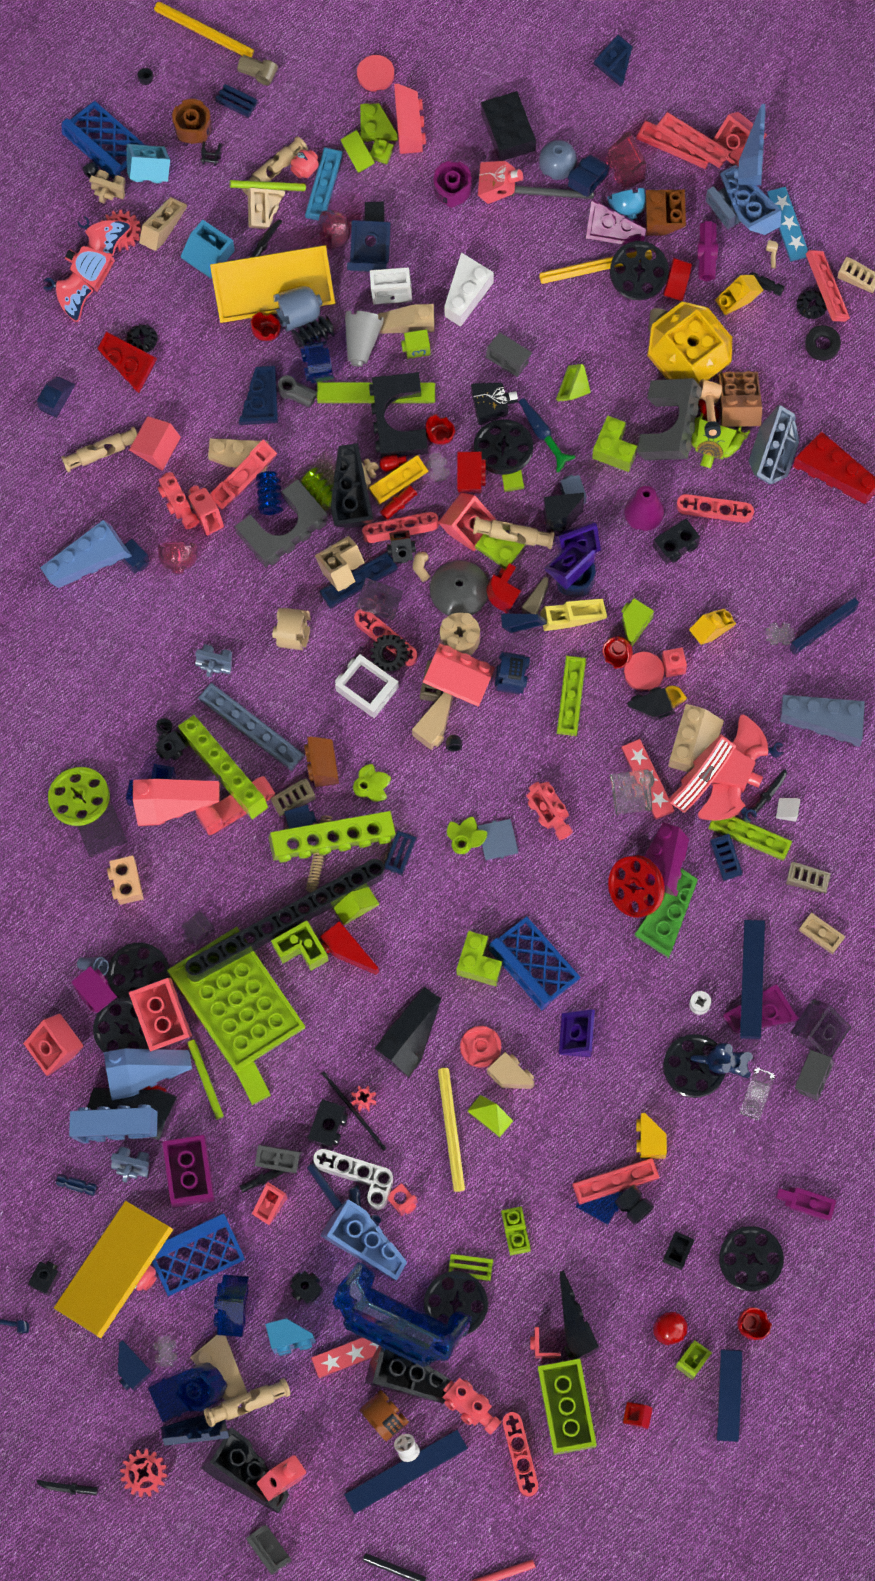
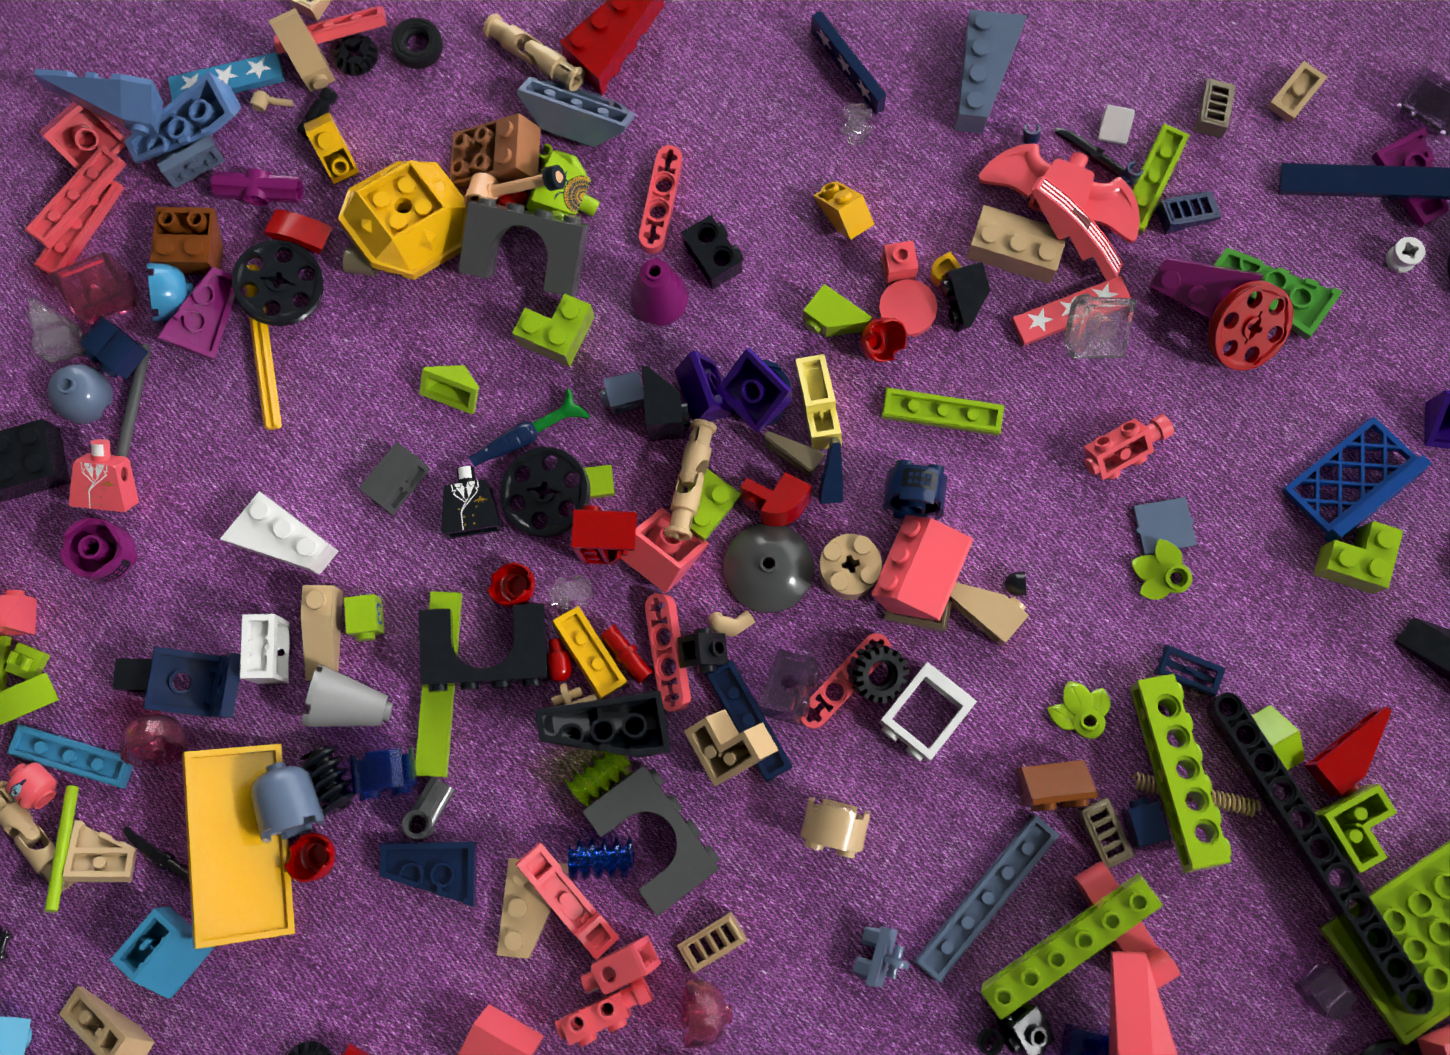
camera: 85 degrees left, 5 degrees up
(227, 576) = (735, 929): none -> tan slope
(598, 139) = (54, 334): none -> clear slope
(802, 269) = (302, 50): none -> tan slope
(810, 426) = (546, 59): none -> tan piece

